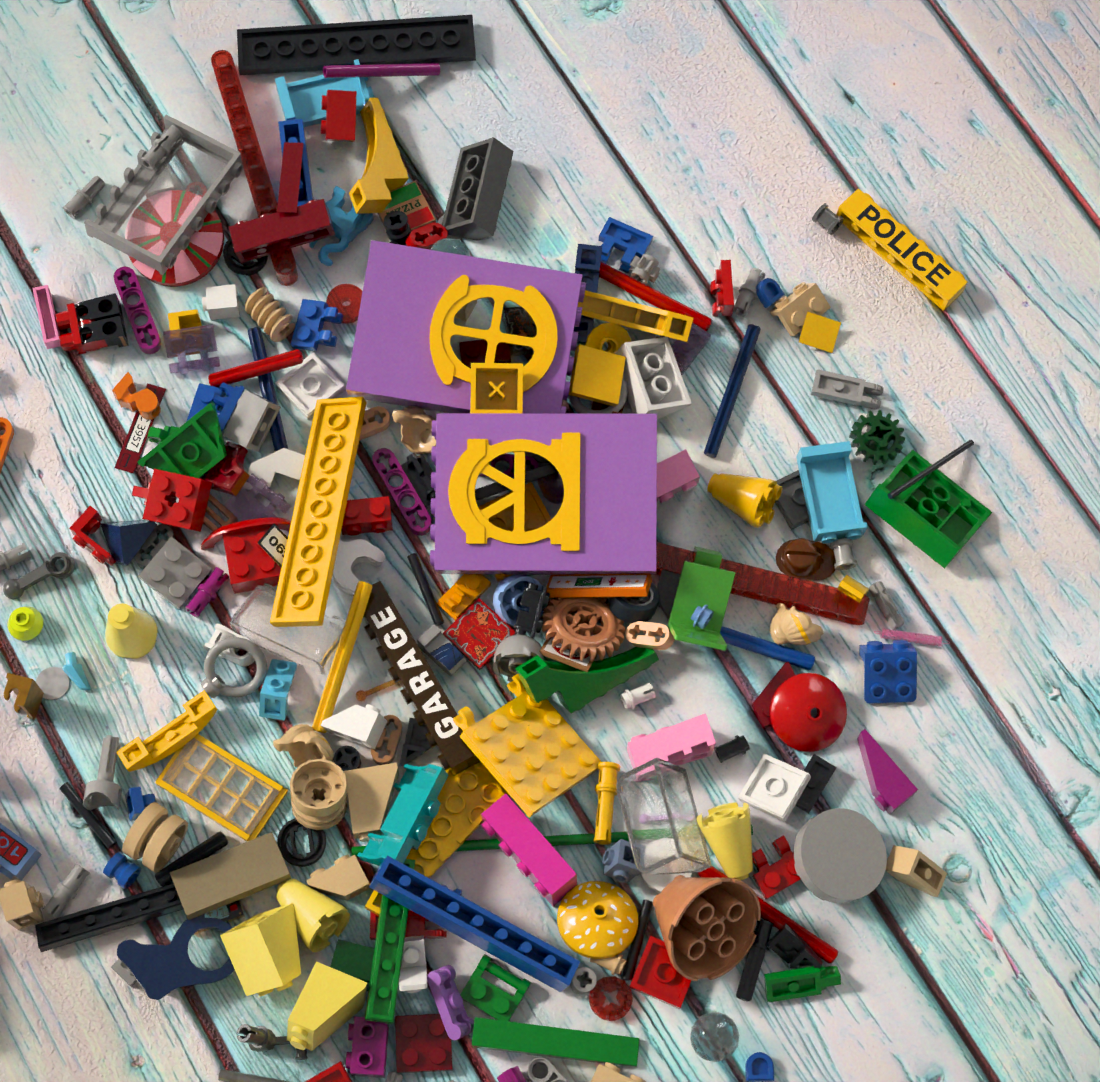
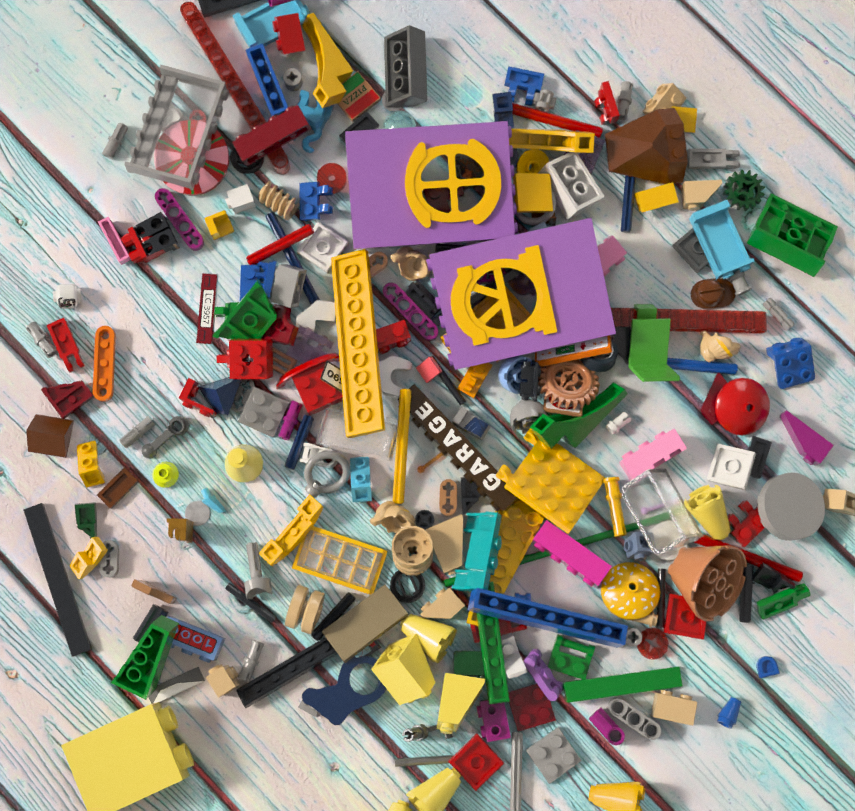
camera: 10 degrees left, 10 degrees up
(121, 870) = (286, 637): blue wheel -> none
(137, 802) = (284, 587): blue tile -> none
(143, 401) = (204, 288): orange leg -> none
(161, 147) = (164, 91): light grey pin -> none
(189, 342) = (226, 236): plate -> none
(207, 626) = (299, 440): none -> dark blue axle
(290, 177) = (267, 92): dark red sticker -> none
(332, 178) = (295, 83): none -> light grey wheel
(357, 725) = (426, 493): white slope -> none
(397, 226) = (356, 115): black wheel -> none
(405, 569) = (429, 369): none -> coral tile
(424, 234) = (375, 112): red beam -> none
(478, 633) = (493, 404): red tile -> none
(496, 388) = (467, 225): yellow brick -> none
(651, 630) = (618, 382): light nougat beam -> none
(702, 616) = (653, 356): medium blue plate -> none
(714, 1036) = (733, 654): clear light blue piece -> none
(732, 748) = (694, 445): black pin -> none
(746, 496) = (660, 257): yellow cone -> none
(759, 419) = (656, 197): none -> yellow hinge
(764, 356) = (649, 148): none -> reddish brown wedge
(768, 292) = (639, 97): blue tile -> none
(818, 427) = (697, 193): none -> tan slope
(827, 219) = (669, 30): dark grey bush -> none
(853, 588) = (754, 308): yellow slope -> none
(901, 249) = (728, 41): yellow brick -> none
(913, 637) = (794, 334): bright pink piece -> none
(930, 469) = (787, 208): black axle -> none

